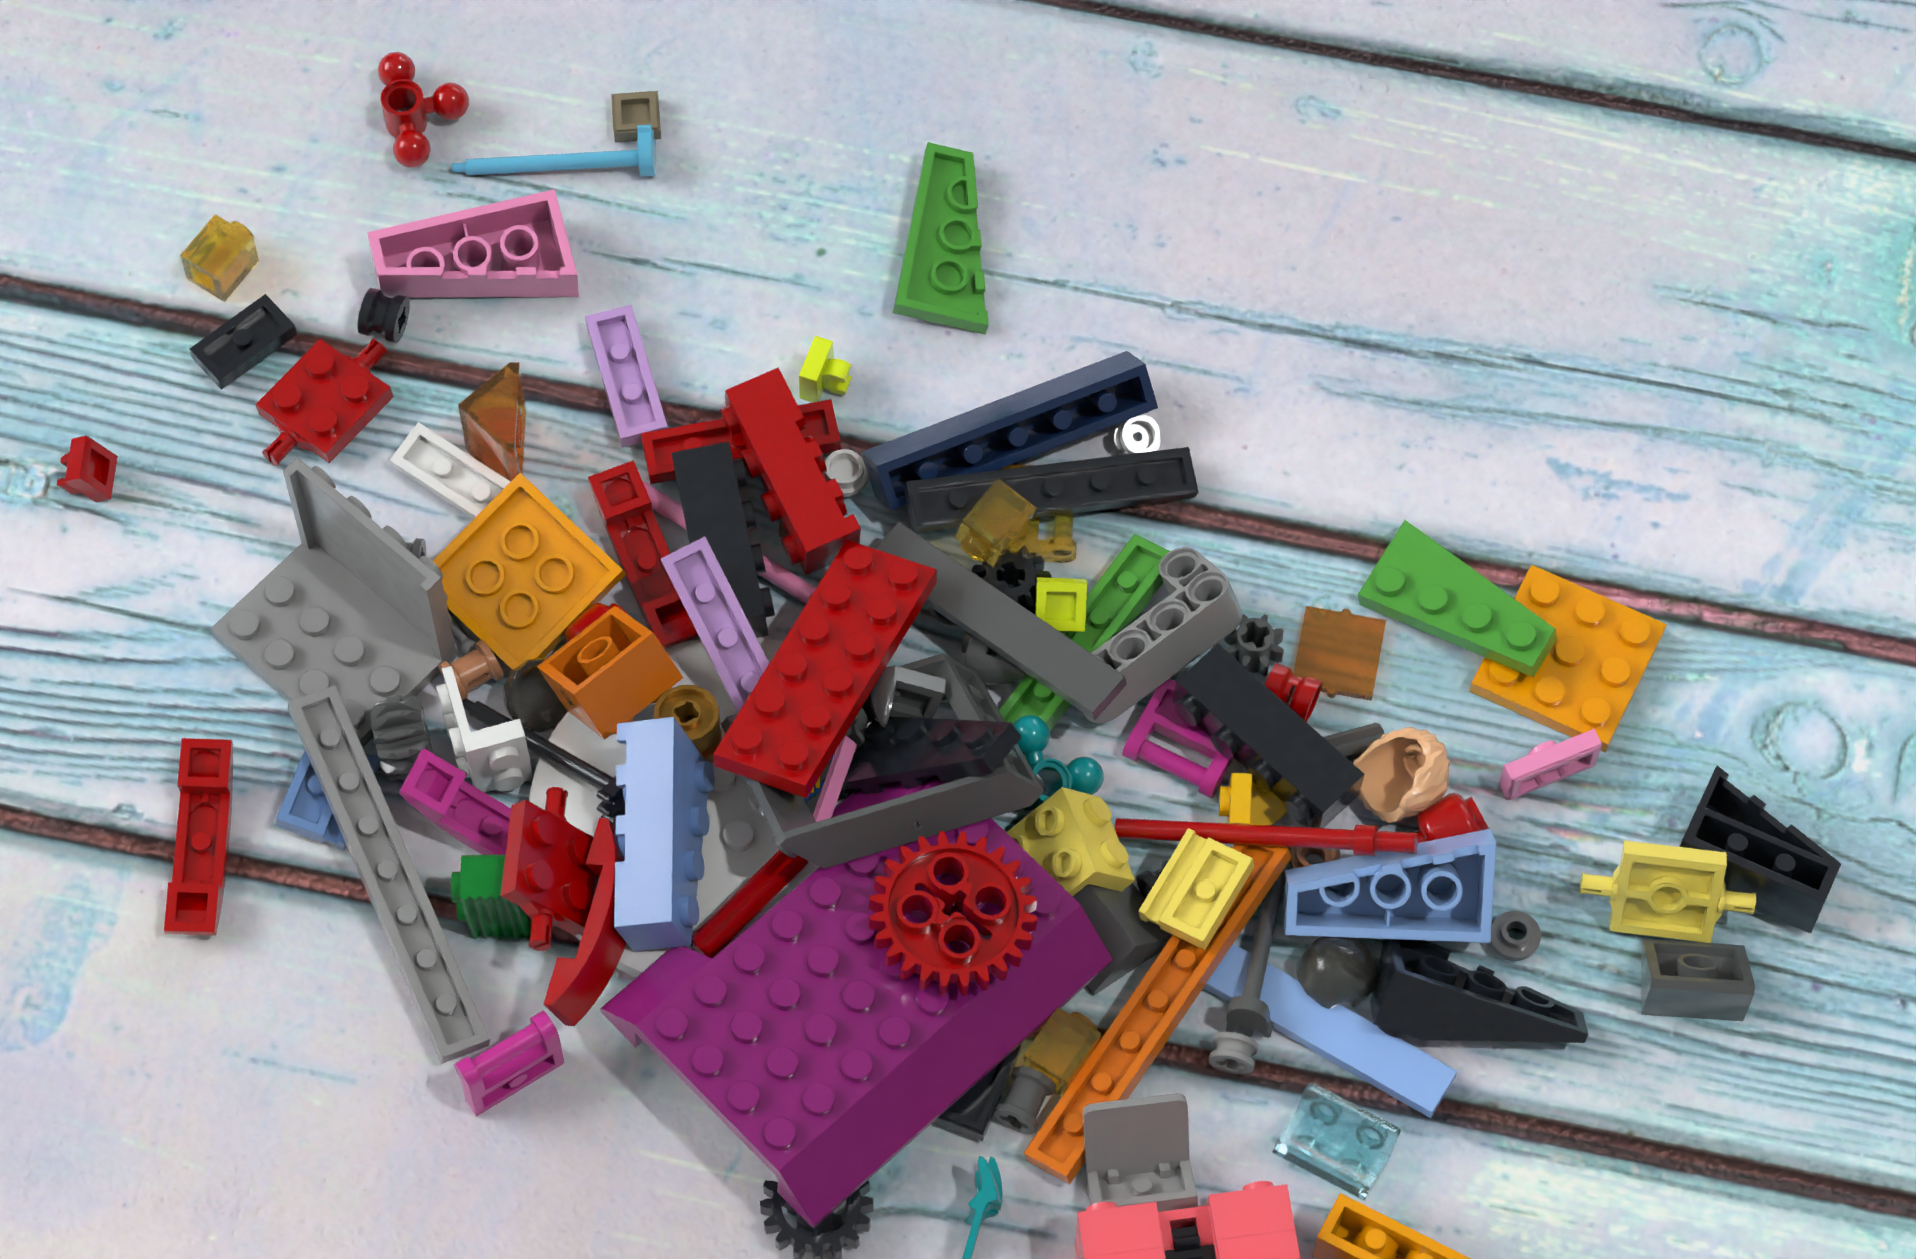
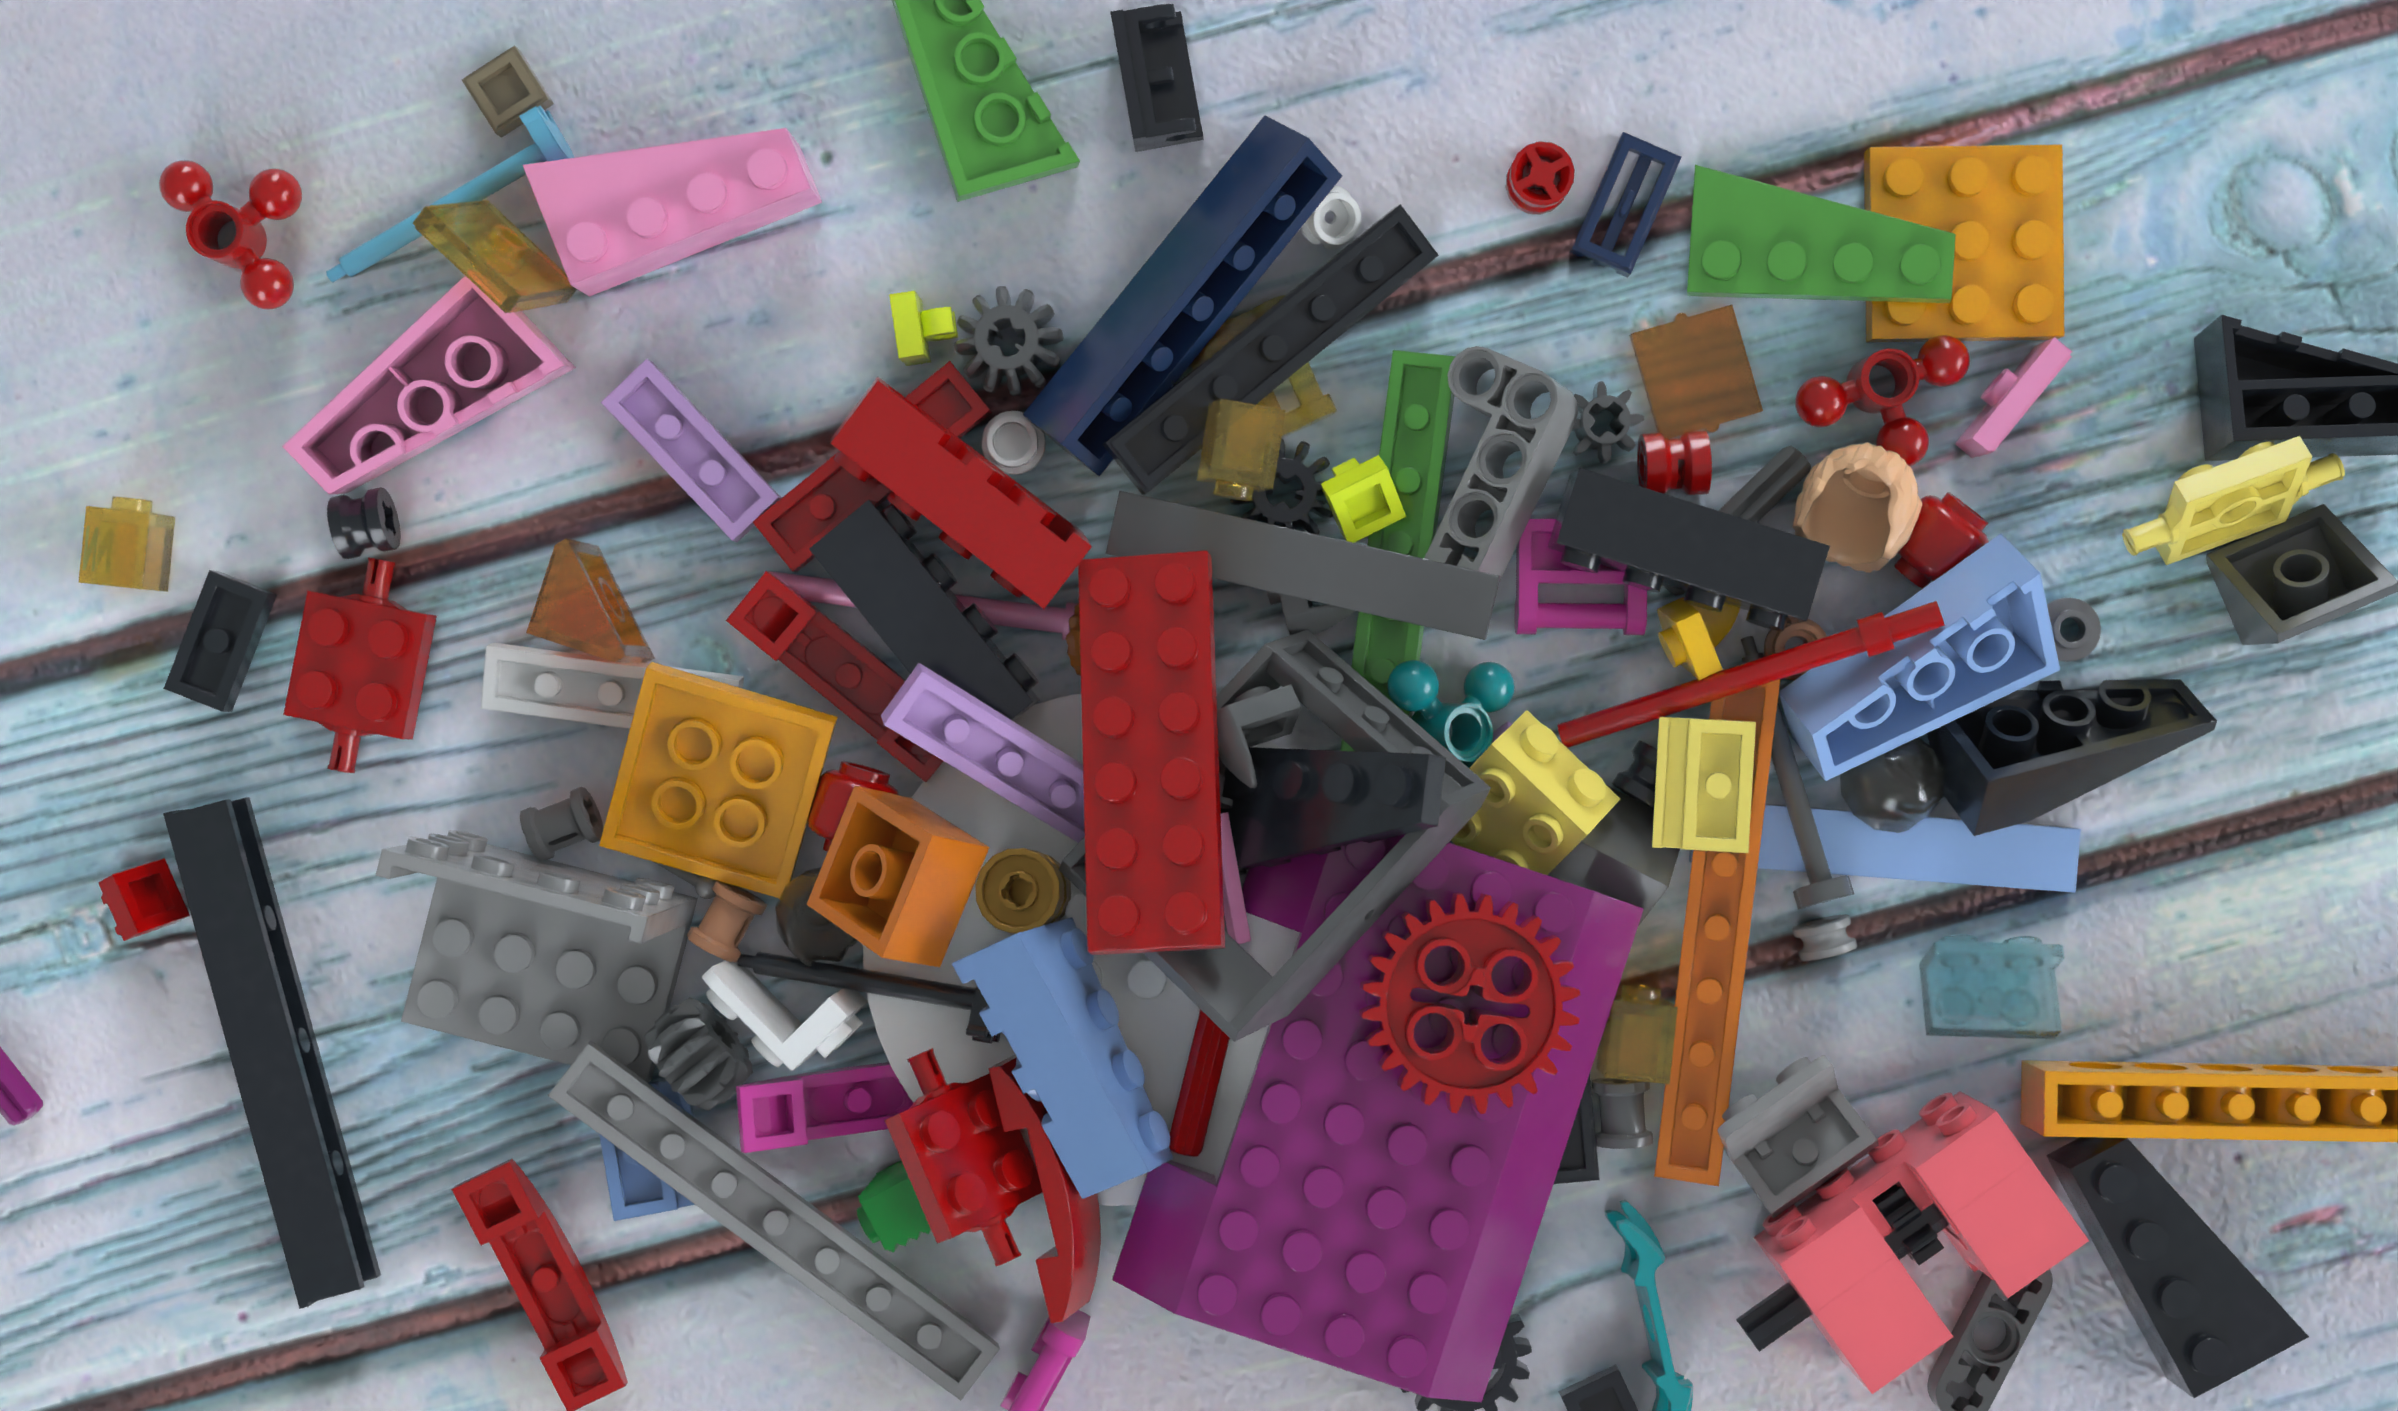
camera: 25 degrees left, 25 degrees up
(113, 606) = (273, 1049): none -> black tile
(572, 195) = (494, 255): none -> clear yellow plate
(703, 222) = (662, 203): none -> bright pink wedge
(864, 394) = (1025, 324): none -> dark grey gear
(1067, 300) = (1156, 76): none -> black hinge
(1297, 467) = (1549, 170): none -> red wheel
(1315, 549) = (1603, 254): none -> dark blue tile
(1511, 718) = (1939, 362): none -> red piece

